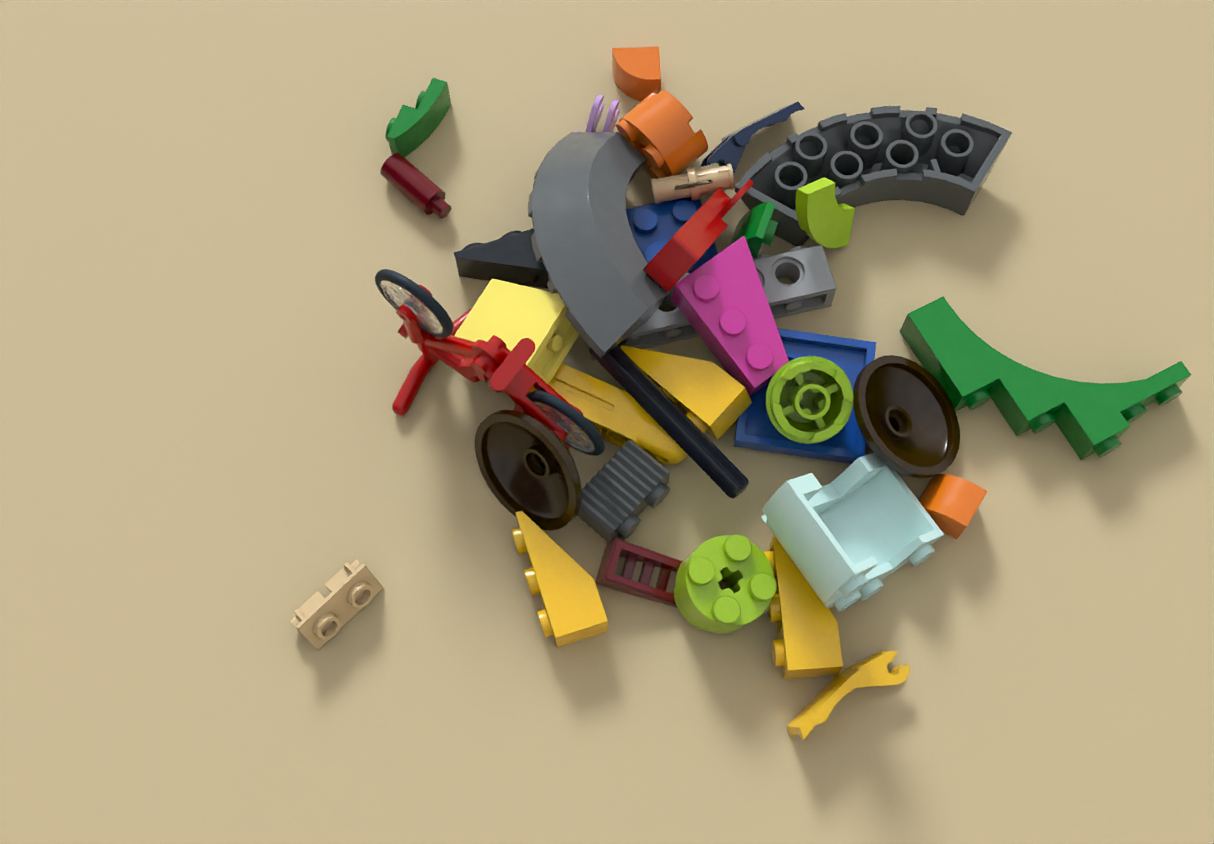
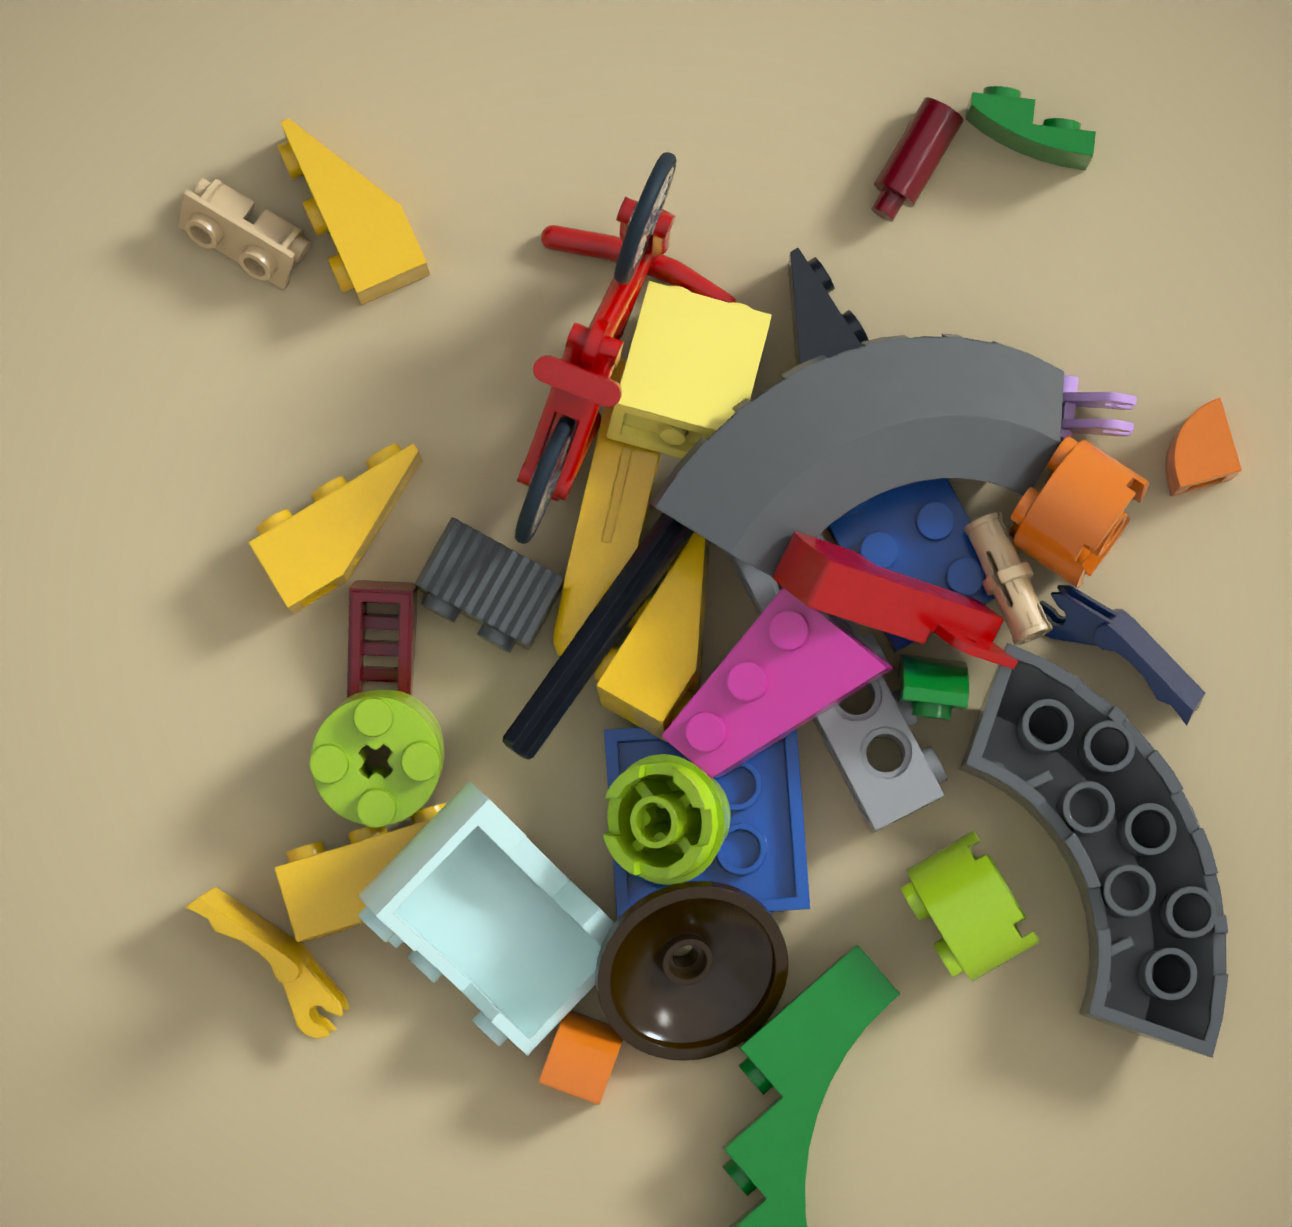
camera: 75 degrees right, 15 degrees up
(355, 519) = (364, 222): none -> yellow slope
(528, 468) = (477, 447): dark brown dish -> none
(822, 216) = (982, 788): lime tile -> none
(894, 246) = (968, 907): none -> lime brick

